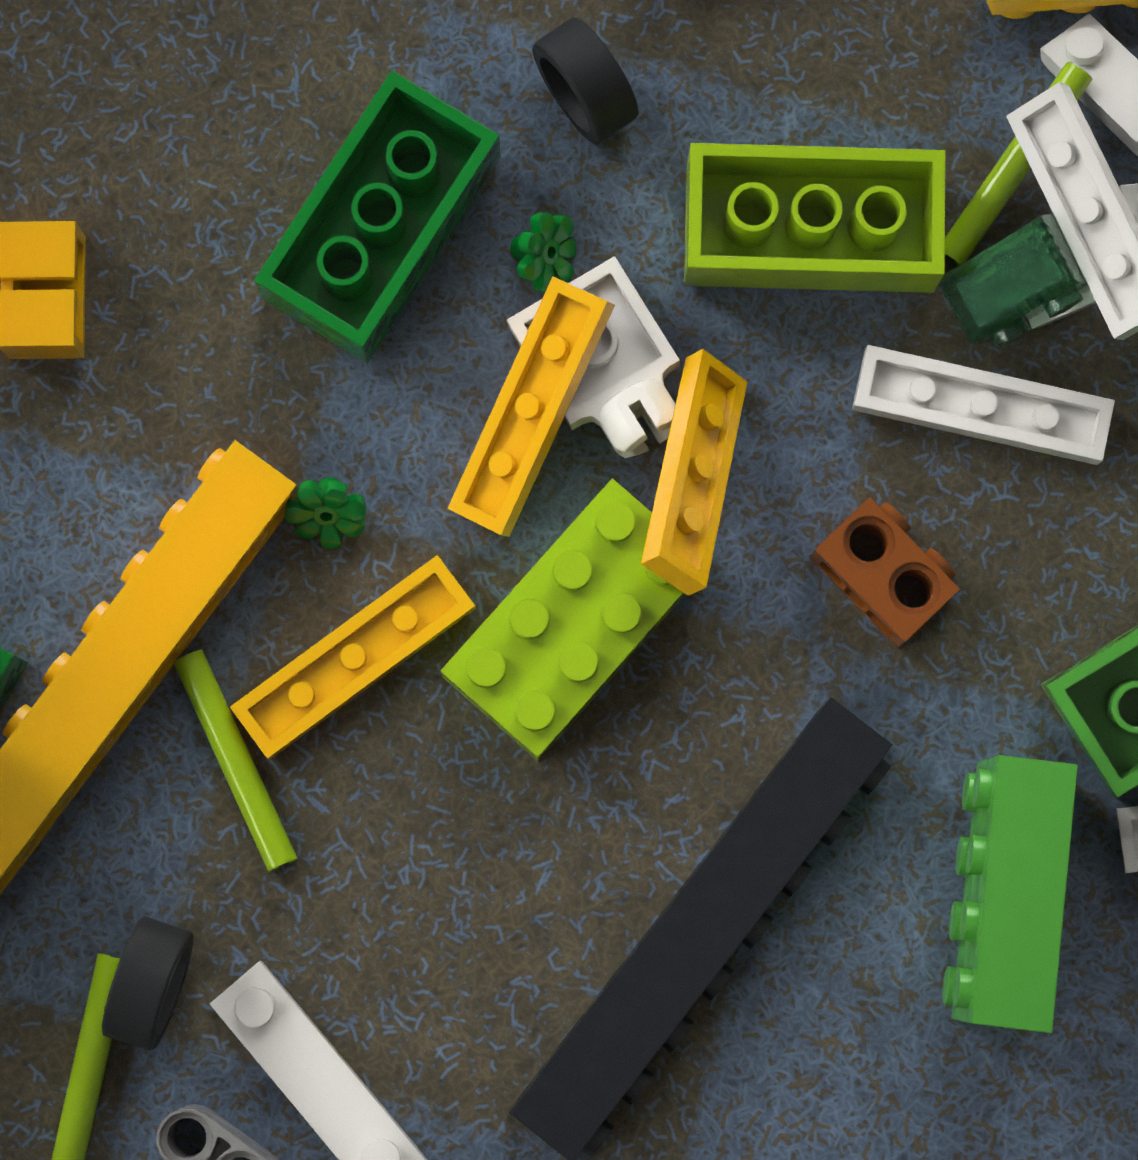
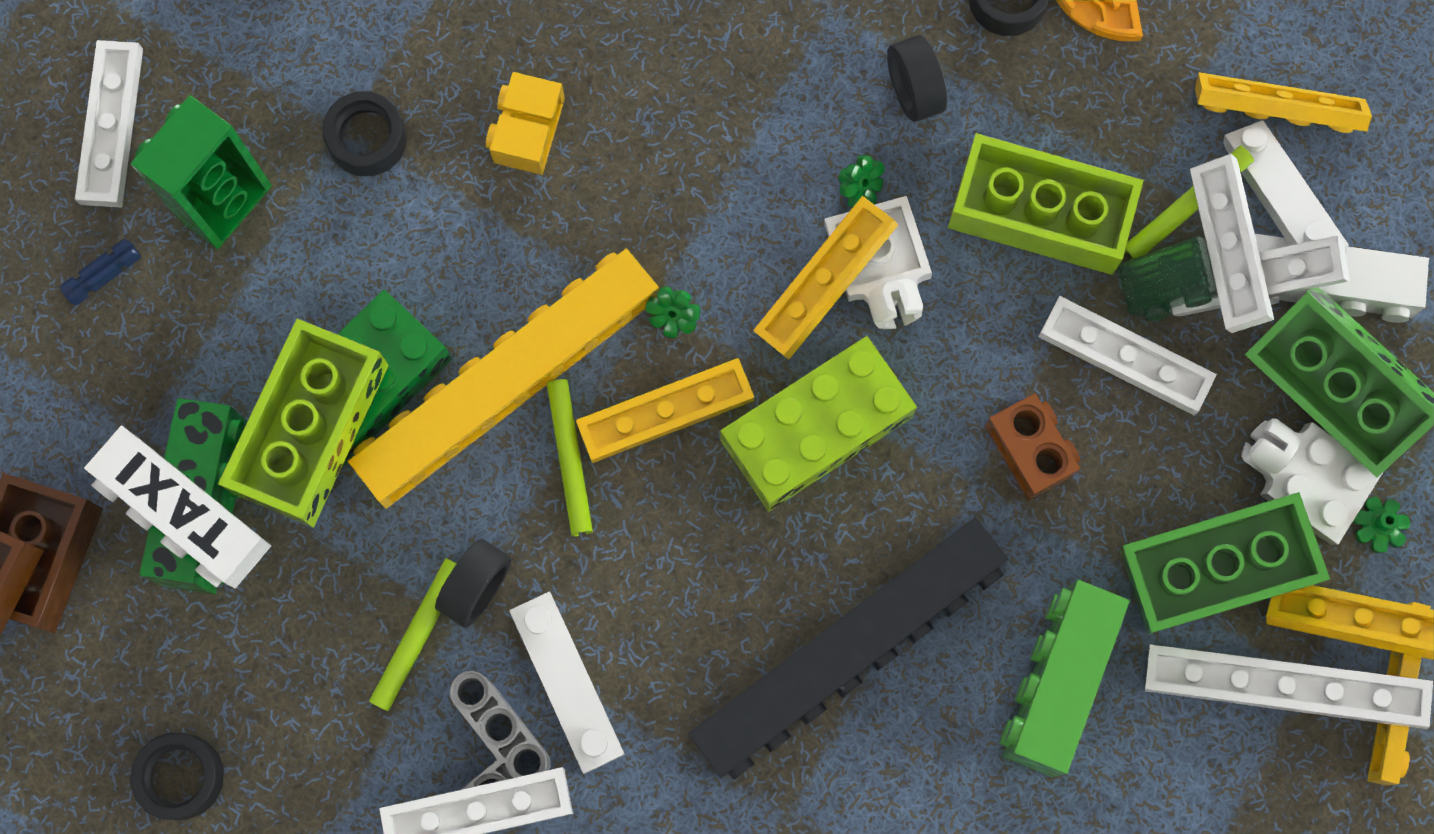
camera: 20 degrees right, 5 degrees down
(379, 216) = (758, 131): green brick -> none
(694, 473) = (922, 346): yellow plate -> none

